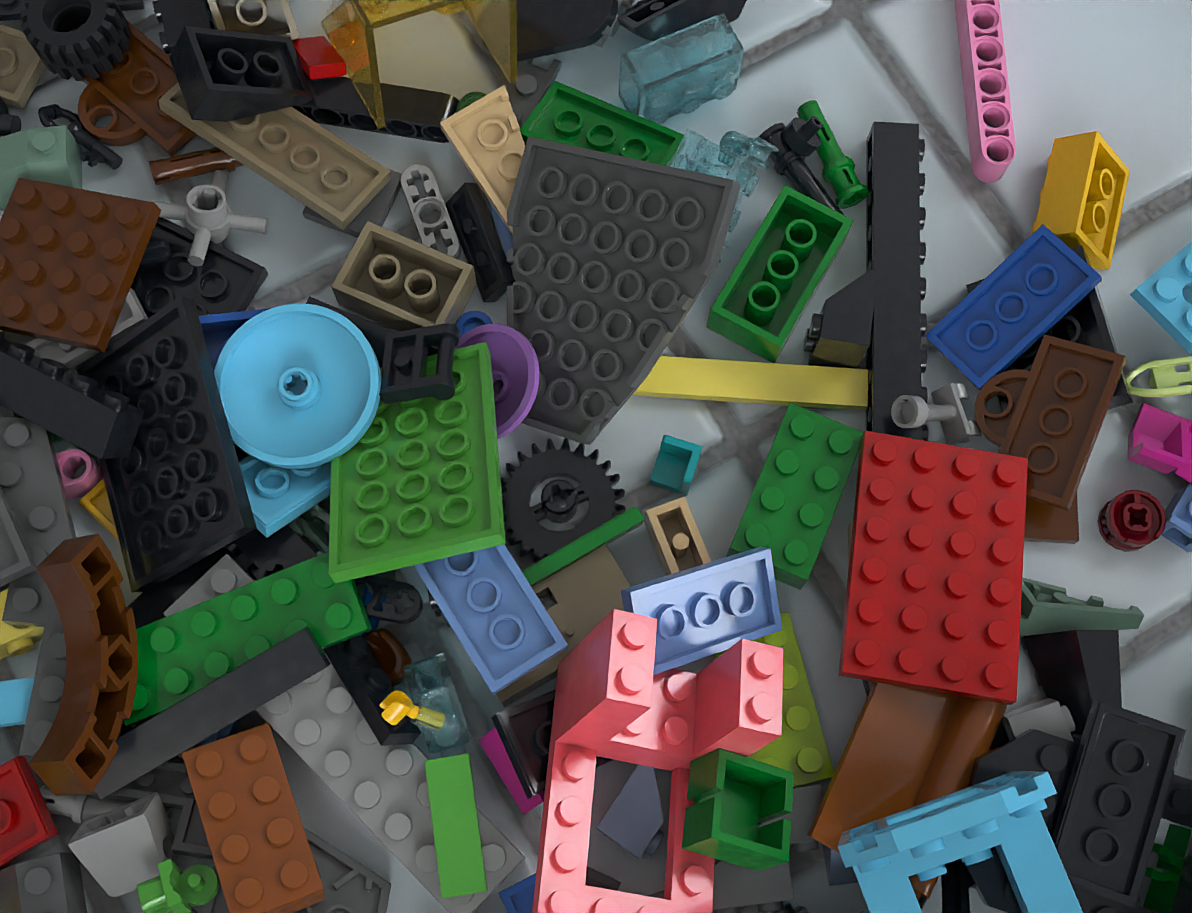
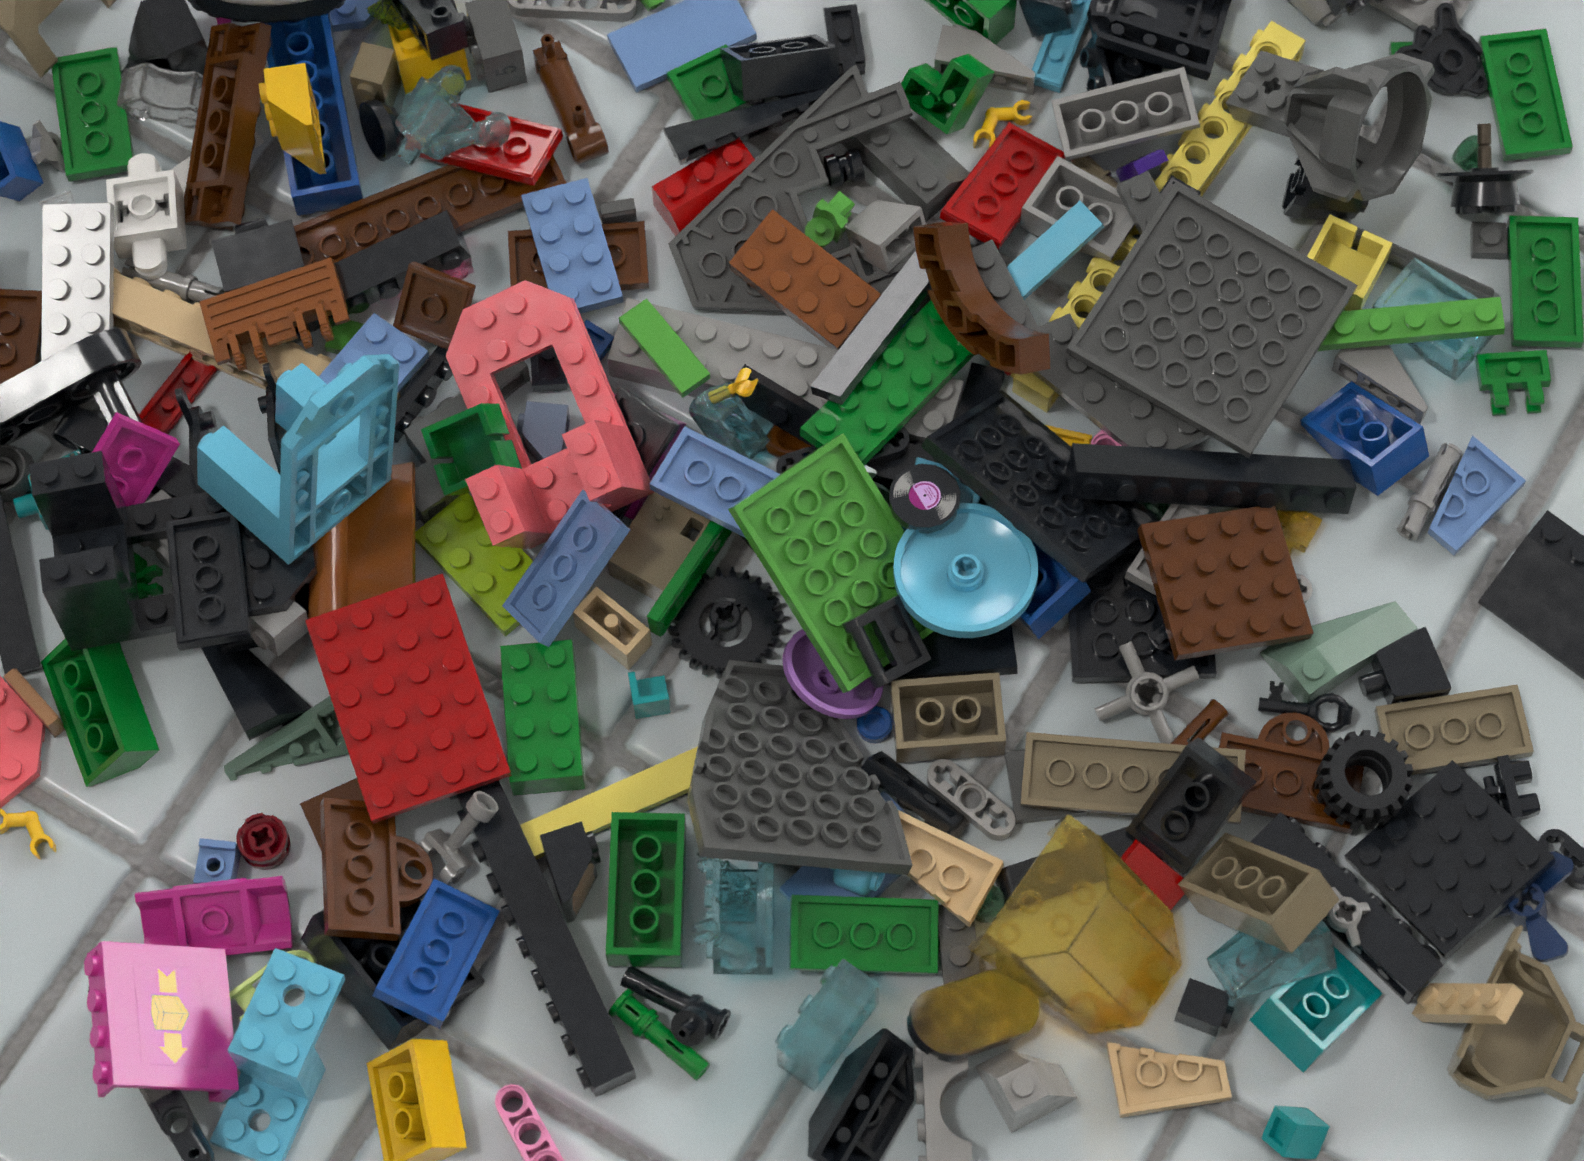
camera: 155 degrees right, 5 degrees down
(288, 475) = (924, 498): none -> black tile

